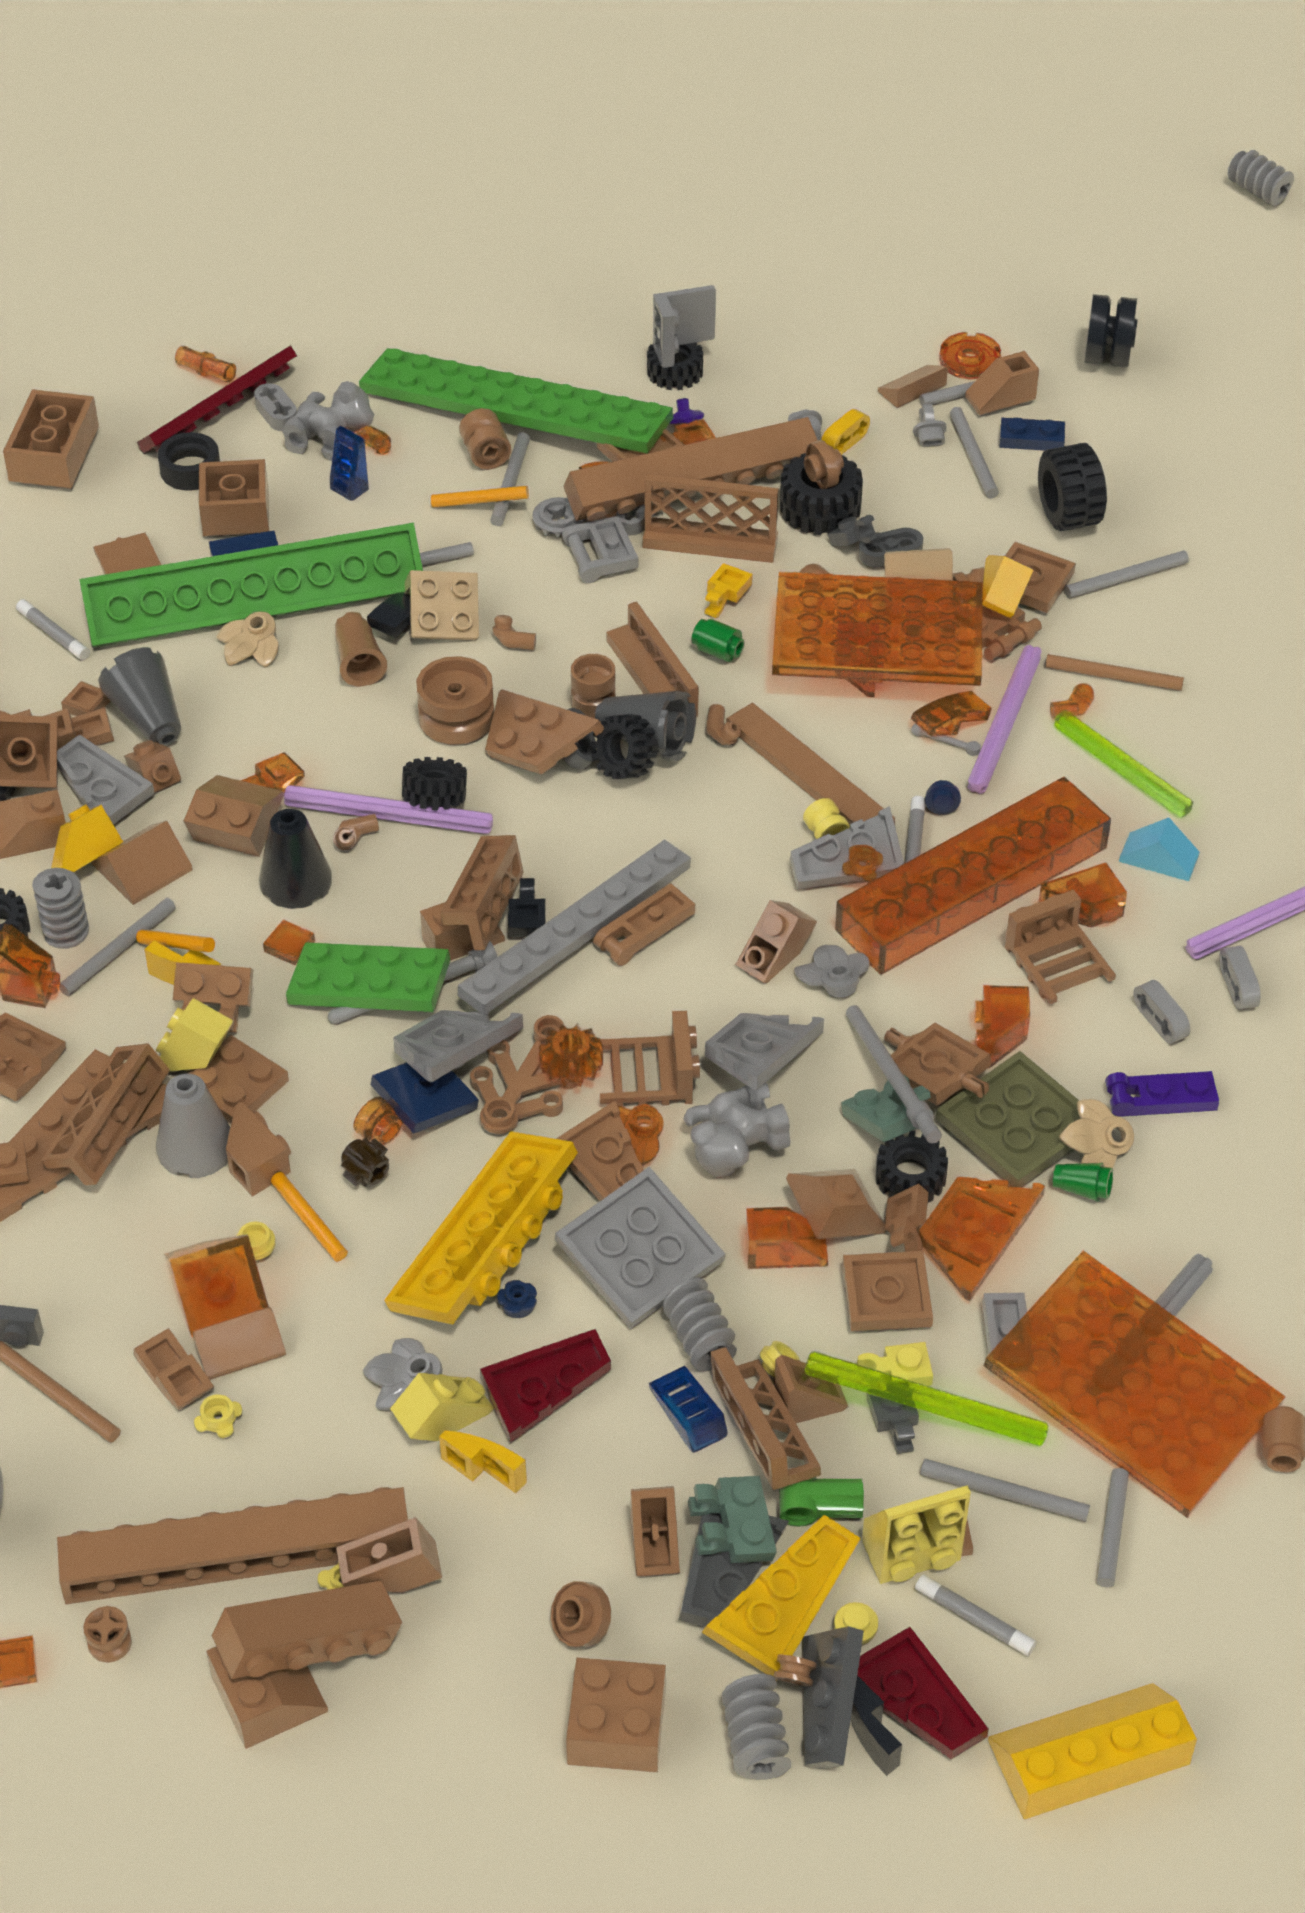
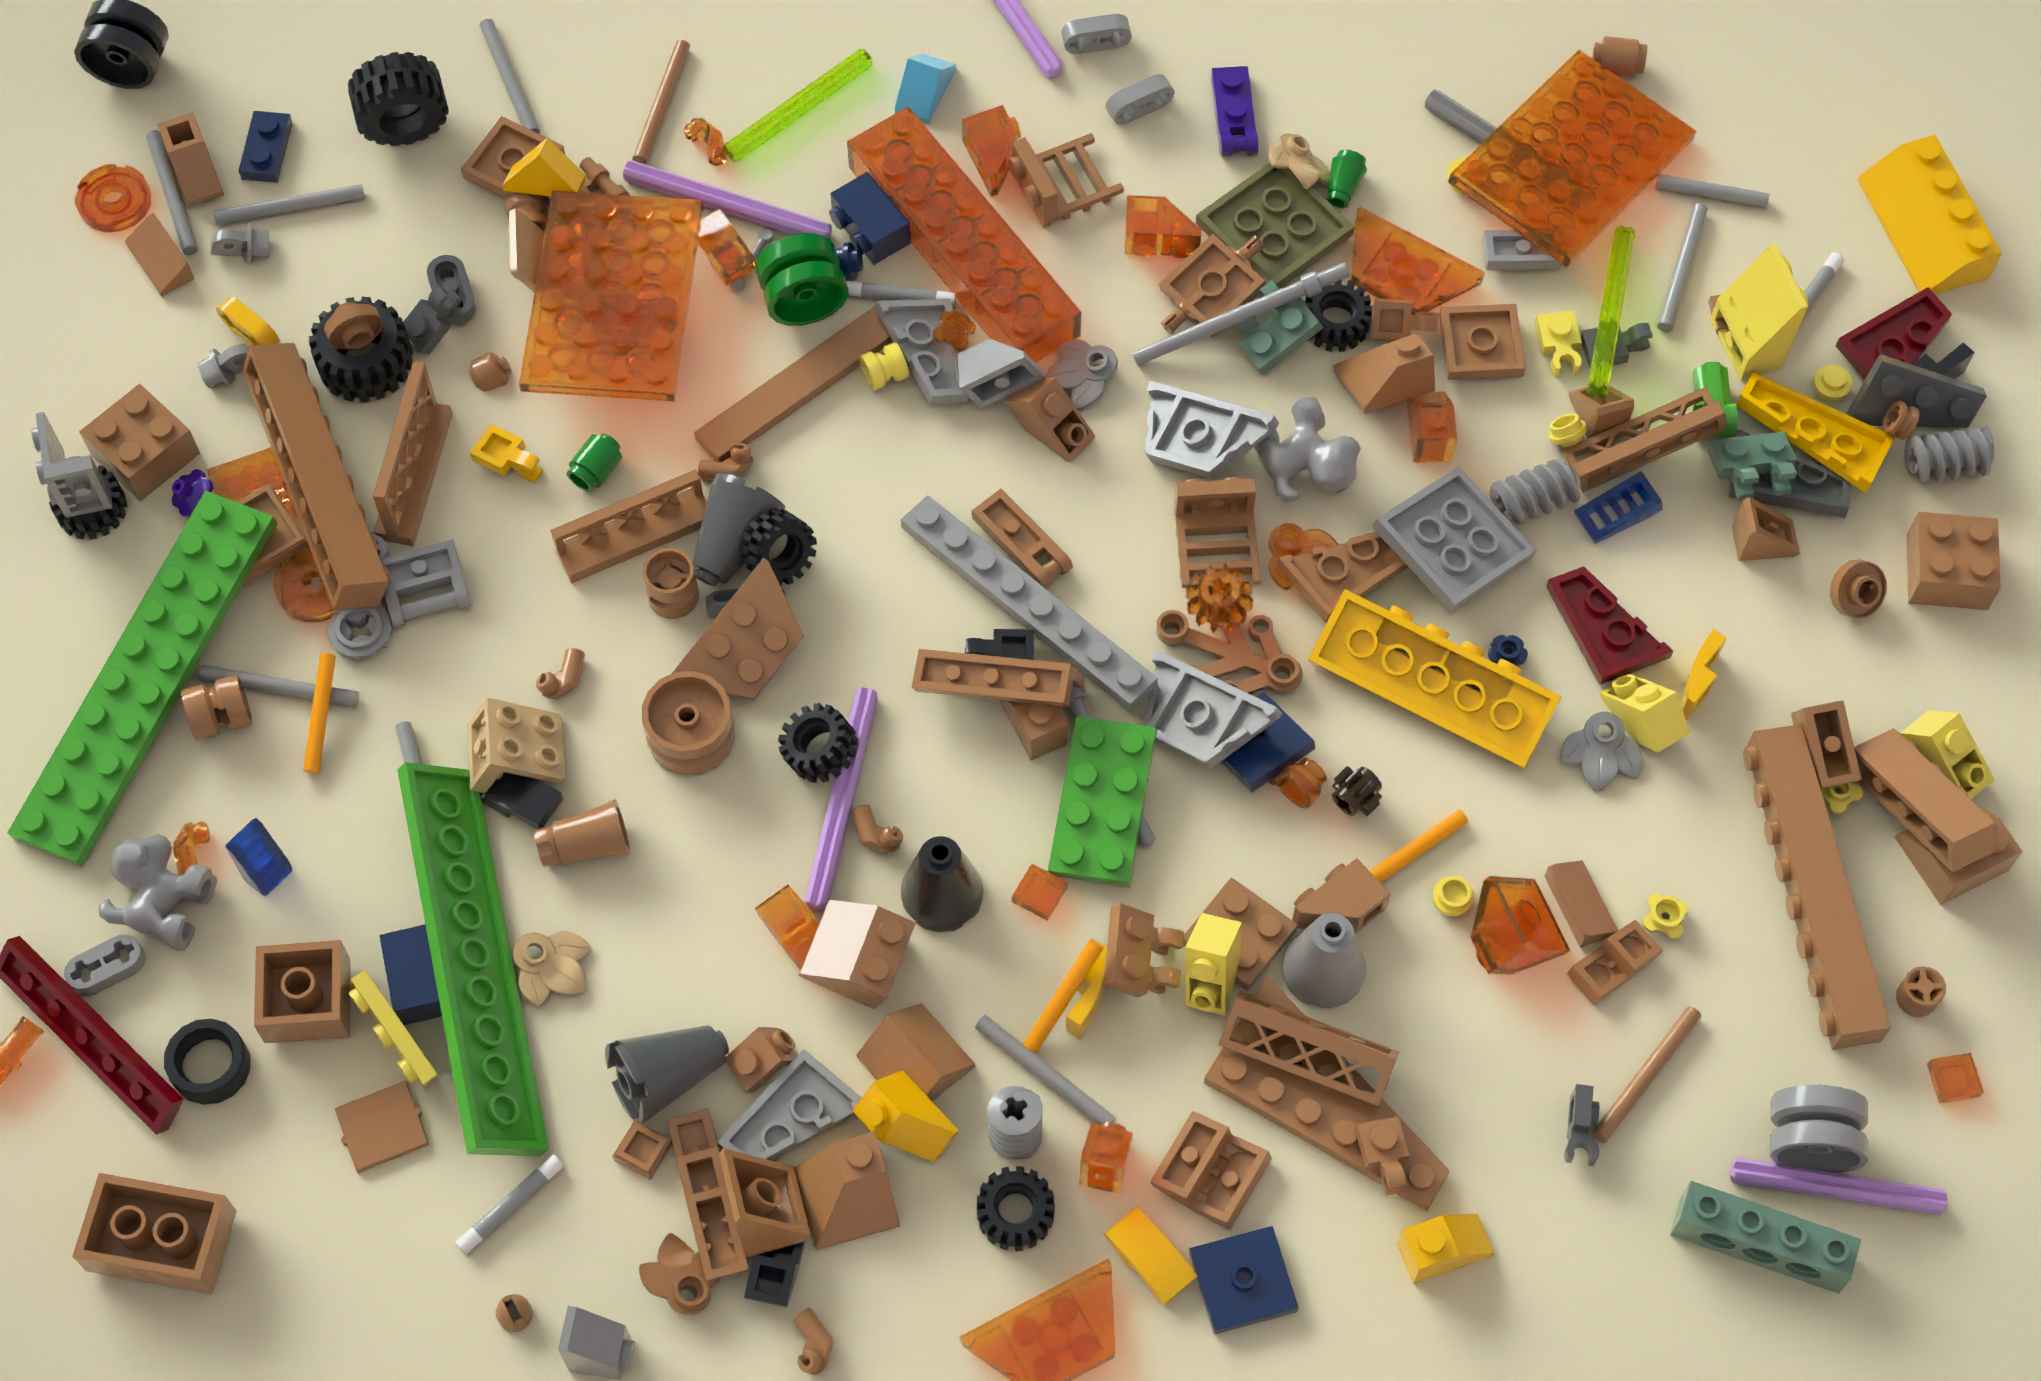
camera: 90 degrees left, 15 degrees up
(193, 543) = (391, 1030): none -> light yellow wing
(375, 1683) = (1948, 743): none -> light yellow slope
(727, 381) = (140, 442): none -> medium nougat brick
(817, 889) = (995, 371): none -> light grey slope
(906, 751) = (801, 279): none -> green wheel
(986, 801) = (869, 218): none -> dark blue brick

